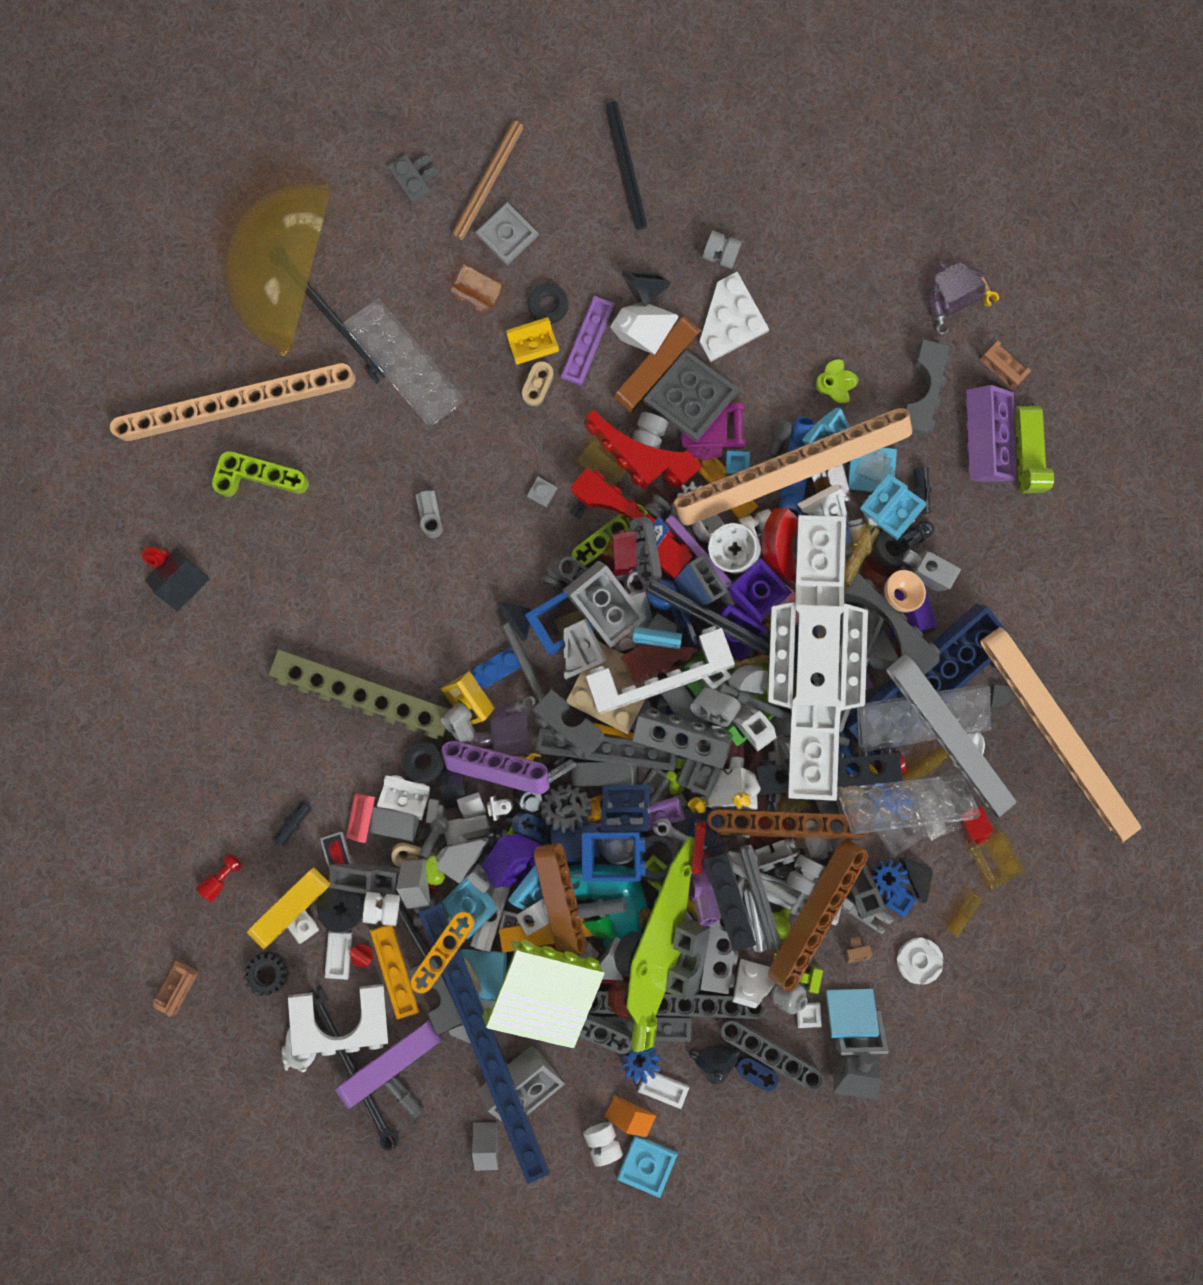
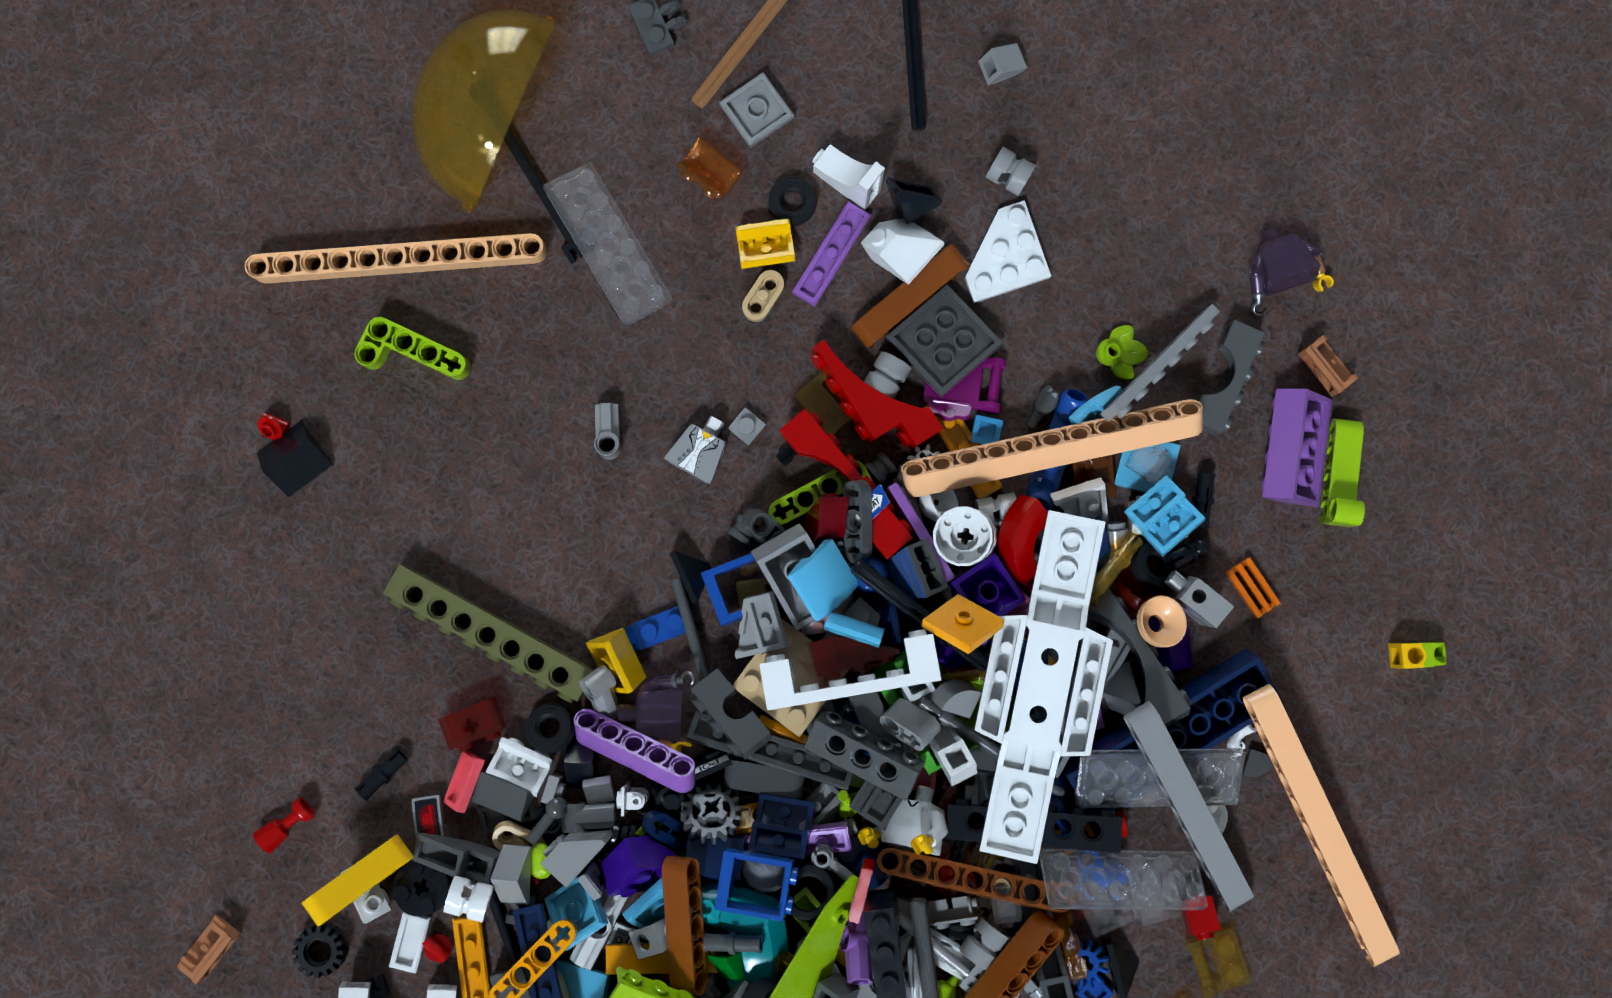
camera: 10 degrees right, 0 degrees up
(346, 771) = (456, 725): none -> clear red brick
(507, 518) = (699, 450): none -> light grey torso
(592, 275) = (849, 177): none -> white arch
(626, 601) = (823, 580): none -> medium azure slope
(700, 163) = (1002, 63): none -> light grey brick
(744, 616) = (963, 623): none -> light orange plate
(866, 390) = (1154, 371): none -> light grey plate
(874, 864) = (1070, 946): none -> clear orange hinge
(926, 765) = (1151, 834): clear yellow pin -> none
(961, 540) = (1266, 607): none -> orange tile
(980, 677) = (1235, 740): none -> white arm
(1115, 585) = (1417, 655): none -> yellow leg

